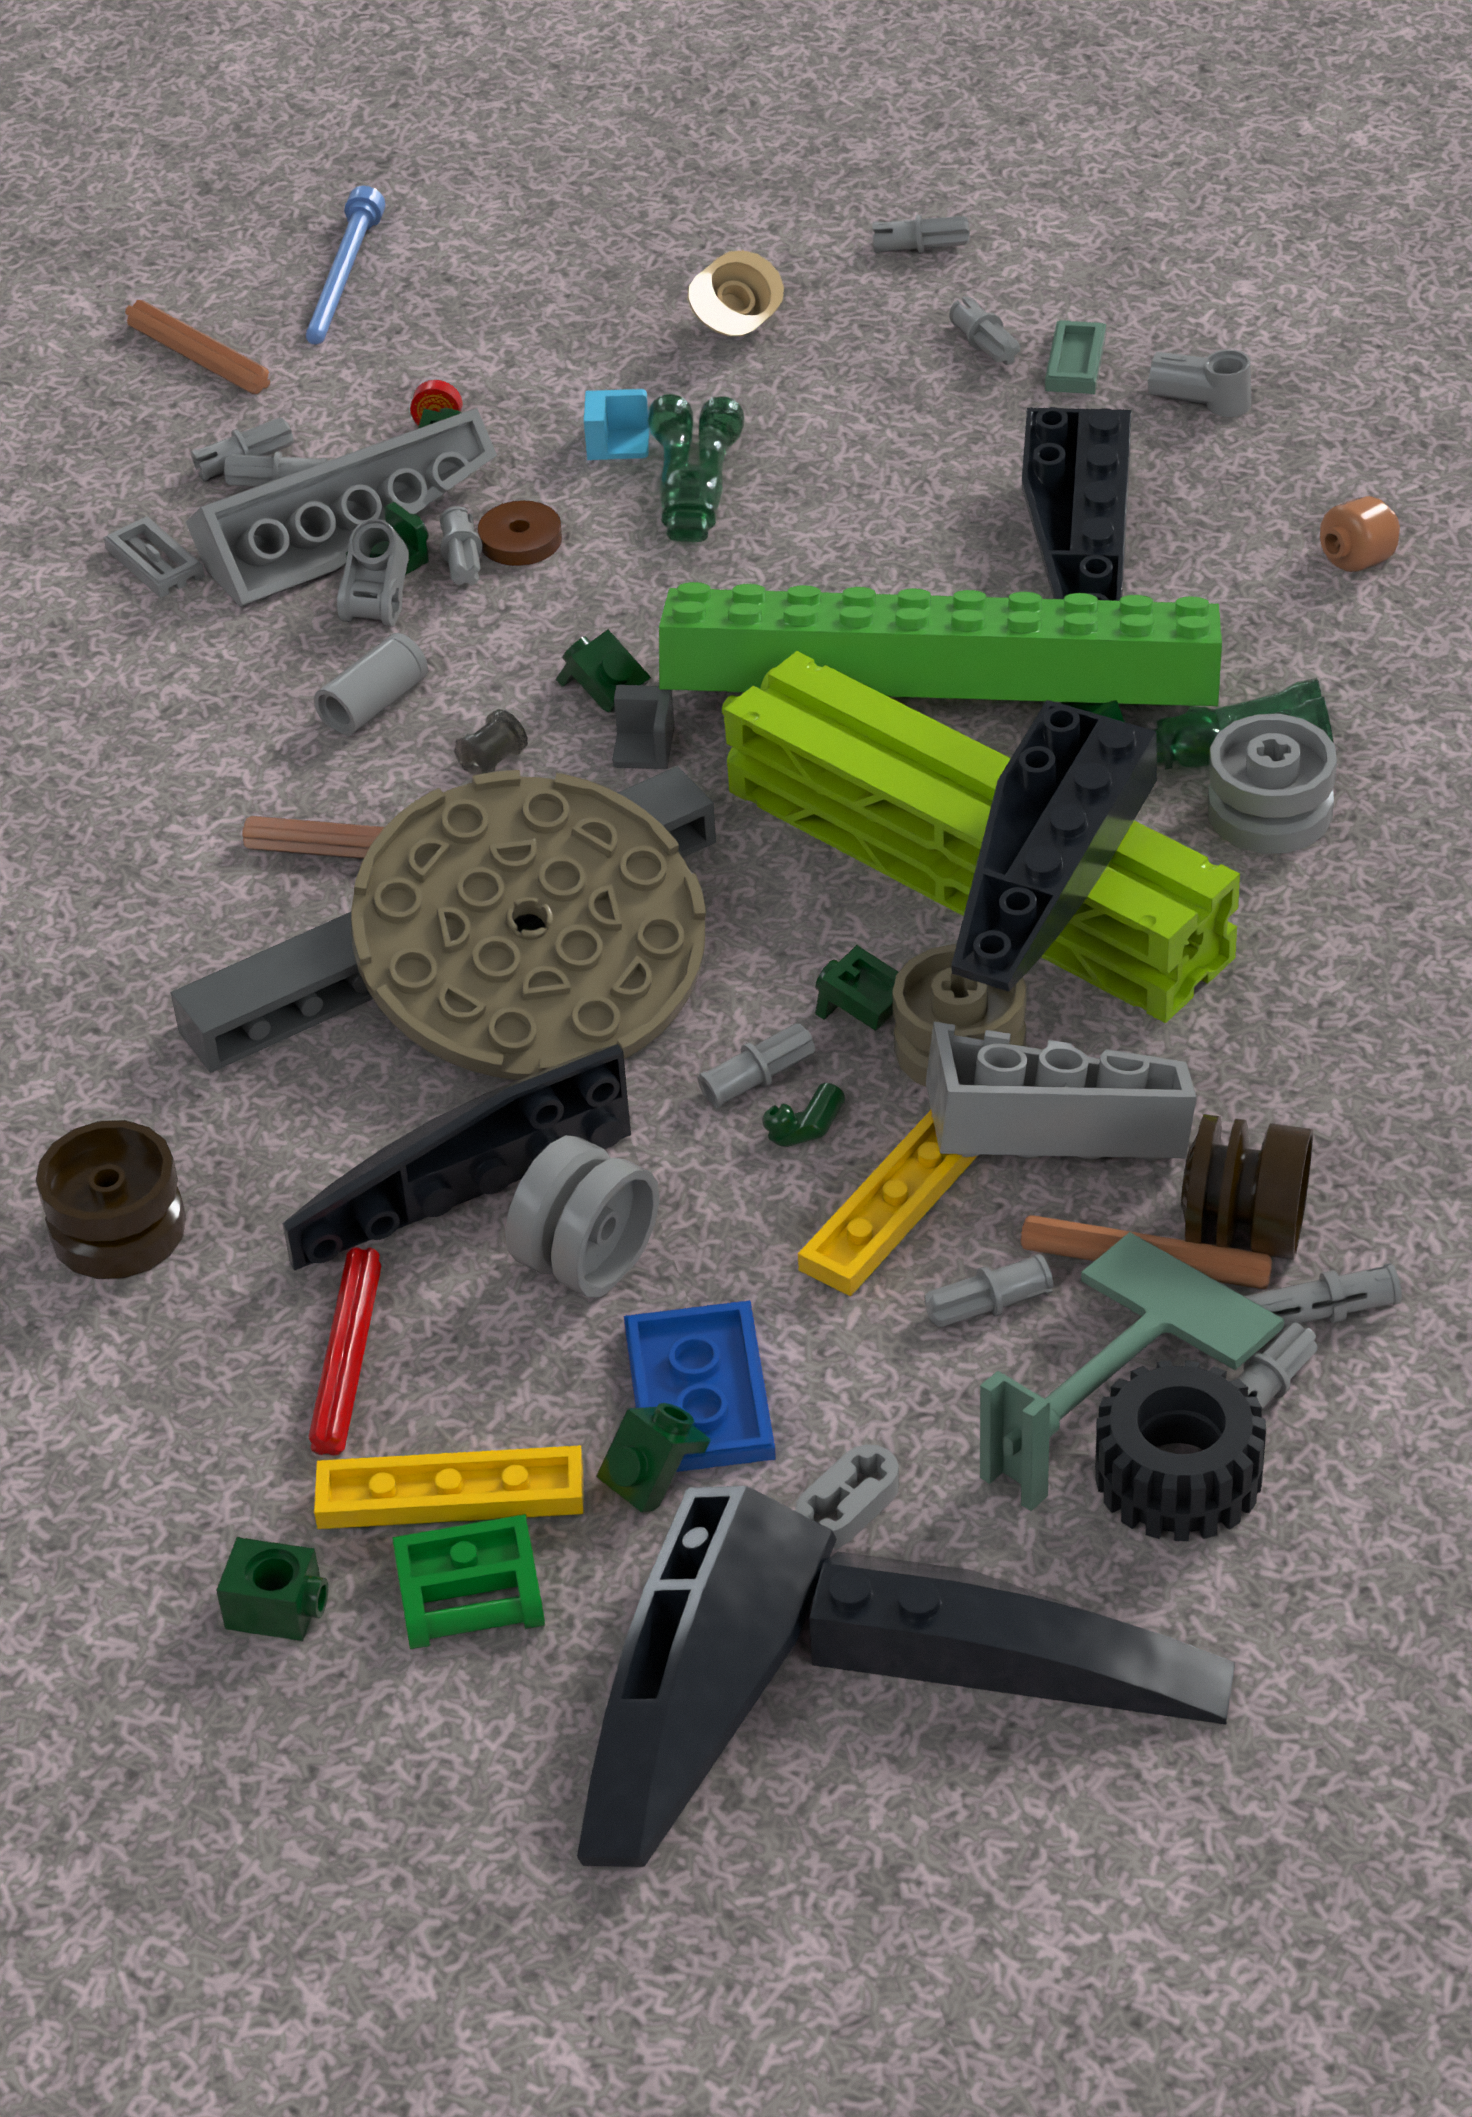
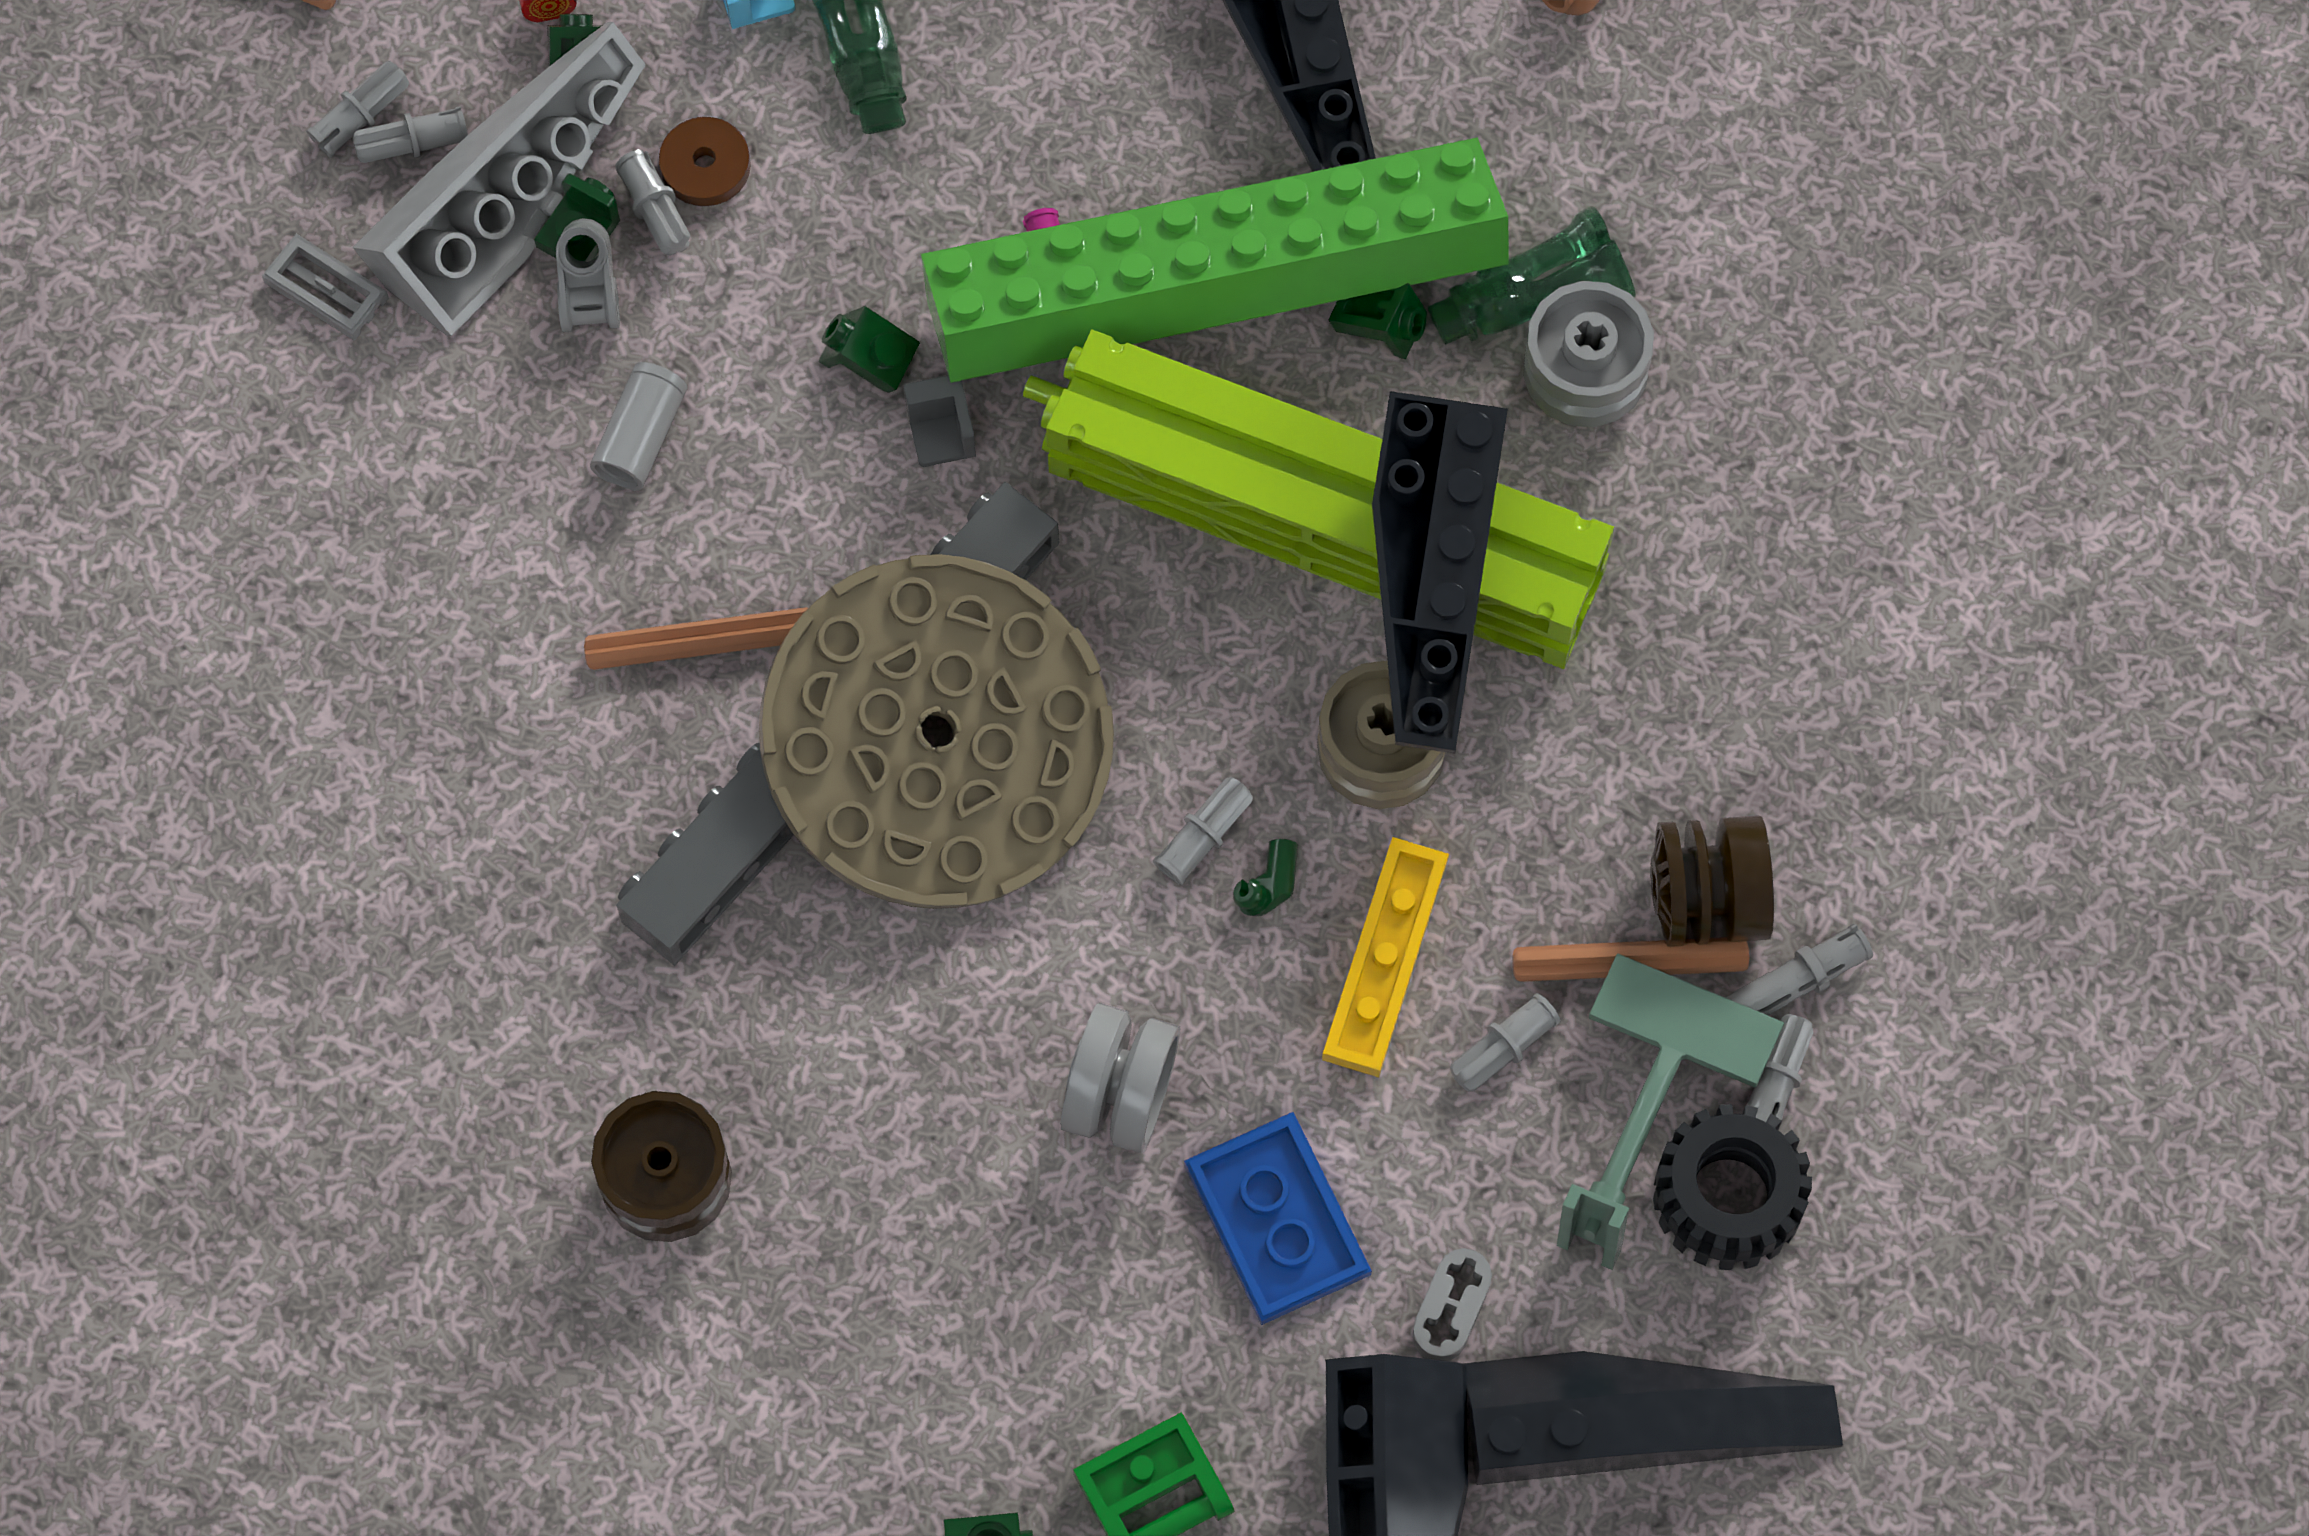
camera: 20 degrees left, 25 degrees up
(345, 1352) = (941, 1265): red axle -> none
(449, 1487) = (1098, 1395): yellow plate -> none
(464, 1155) = (980, 1010): black wedge -> none
(491, 743) = (793, 478): clear smoke bush -> none
(649, 1453) = (1269, 1313): dark green bracket -> none
(858, 986) = (1276, 717): dark green bracket -> none
(1055, 1100) = (1502, 823): light grey wedge -> none

